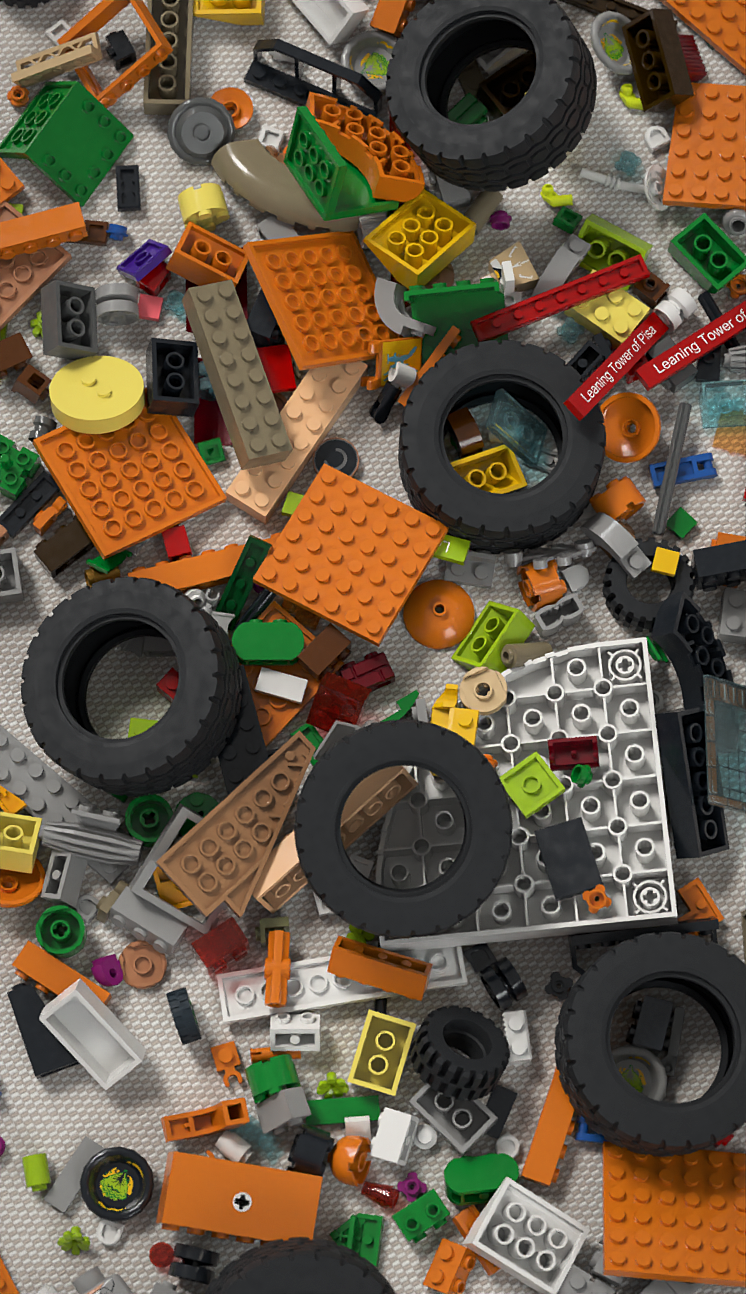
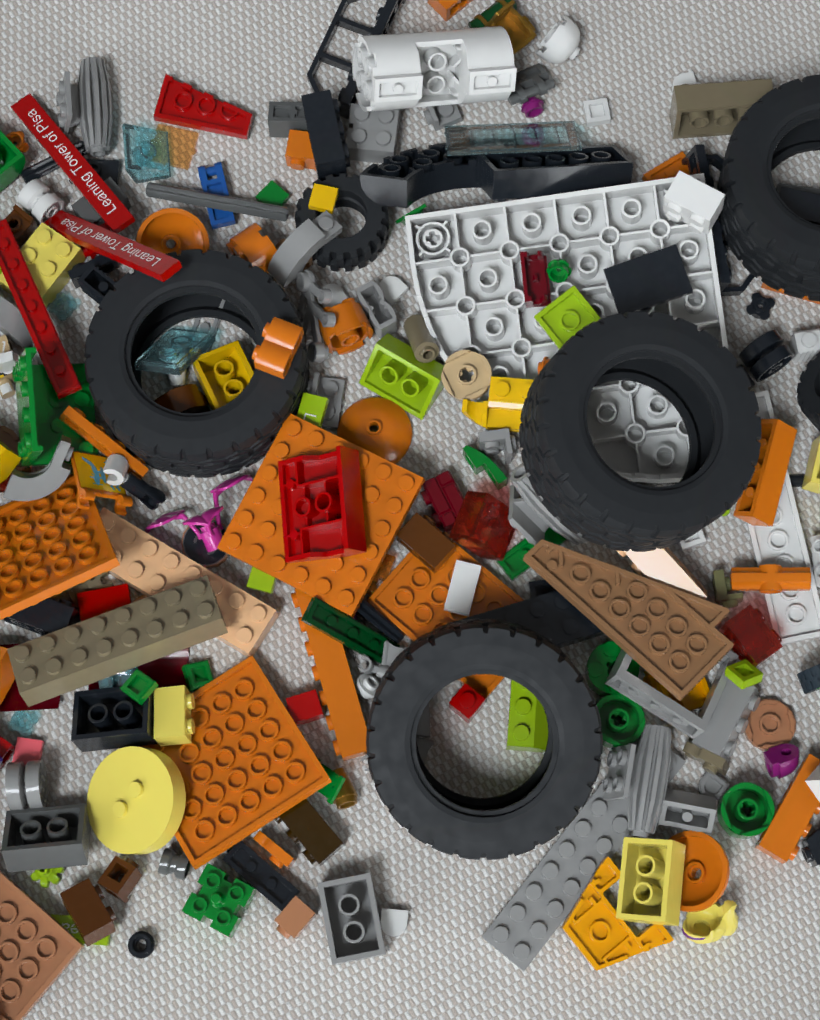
camera: 85 degrees left, 0 degrees up
(171, 426) = (173, 715): none -> light yellow brick
(184, 933) = (743, 674): none -> lime plate
(195, 394) = (139, 686): none -> green tile
(268, 643) = (417, 600): green brick -> none
(347, 454) = (210, 532): none -> dark pink plant
(353, 551) = (322, 506): none -> red piece
(499, 507) = (278, 347): none -> orange brick
(583, 632) = (393, 289): none -> white tile
(589, 896) = (697, 247): orange plate -> none
(638, 897) = (693, 203): none -> white brick

